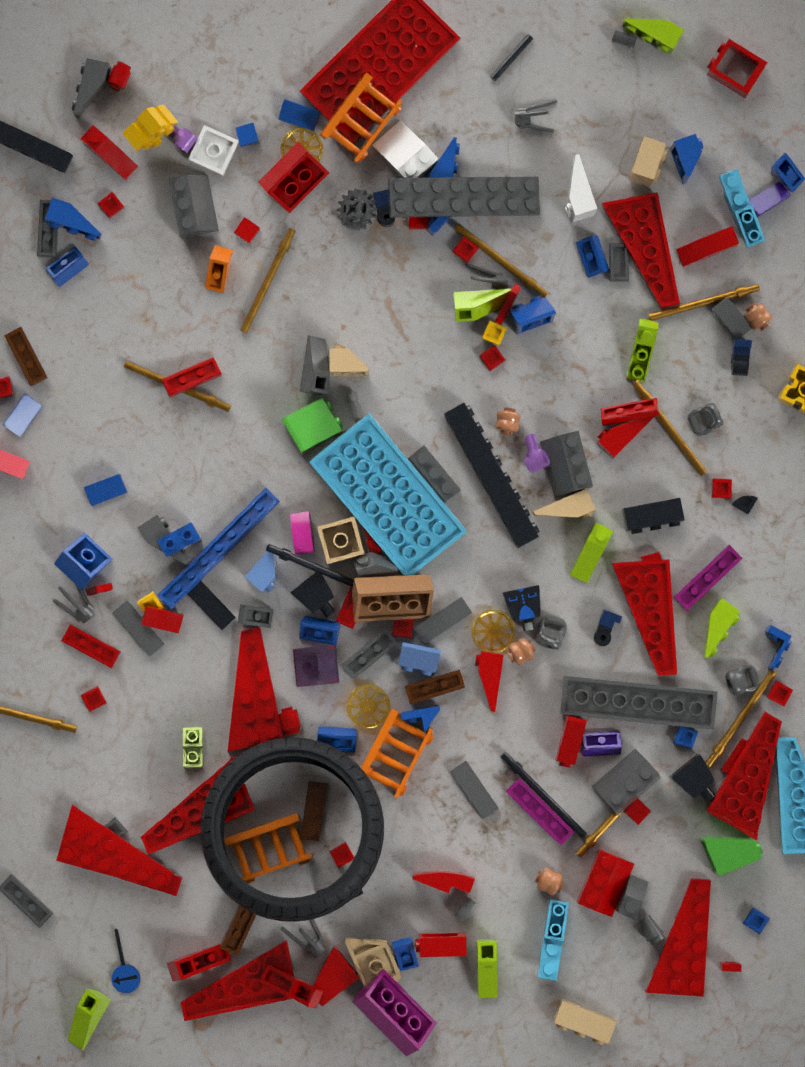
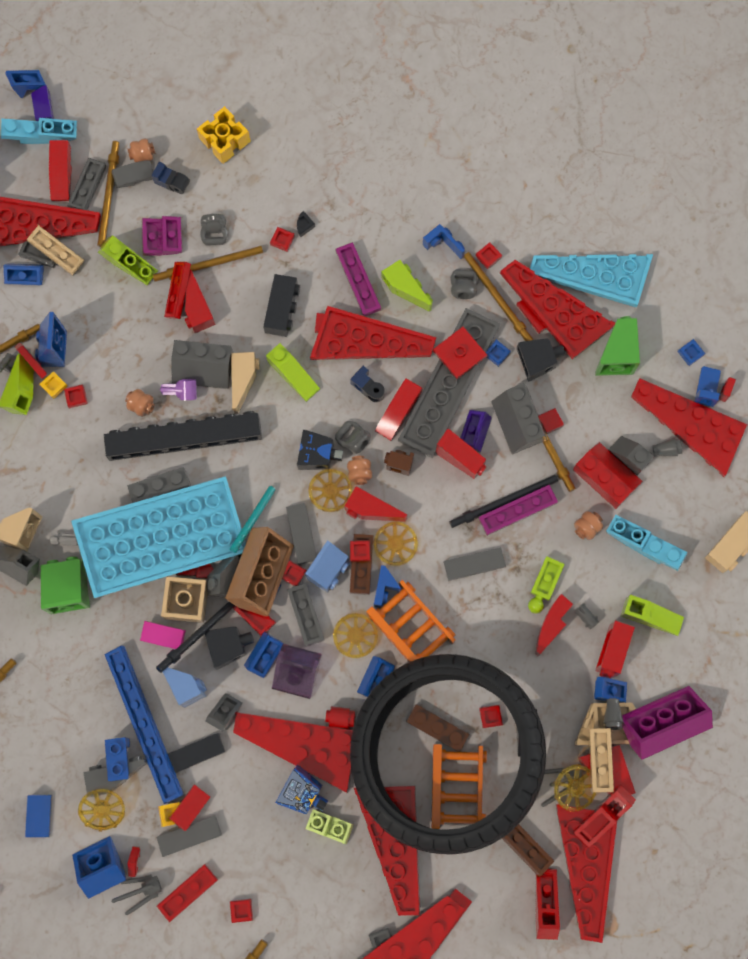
camera: 65 degrees left, 10 degrees down
(131, 543) = (101, 810): none -> clear yellow wheel
(212, 712) = (301, 792): none -> torso
(306, 952) = (575, 788): none -> clear yellow wheel
(338, 966) = (601, 760): none -> tan plate
(382, 963) = (613, 716): none -> dark grey cone
(438, 571) = (252, 519): none -> teal bar
(445, 681) = (359, 551): none -> red tile
(466, 710) = (395, 544): none -> clear yellow wheel
(480, 860) = (545, 584): none -> lime plate
(543, 684) = (399, 462): none -> reddish brown brick
(593, 665) = (398, 409): none -> red slope
(625, 278) = (55, 250): none -> tan tile
(669, 702) = (460, 352): none -> red plate
(680, 371) = (161, 236): none -> magenta slope
(704, 277) = (87, 184): none -> dark grey tile
(727, 947) = (707, 387): none -> blue bracket

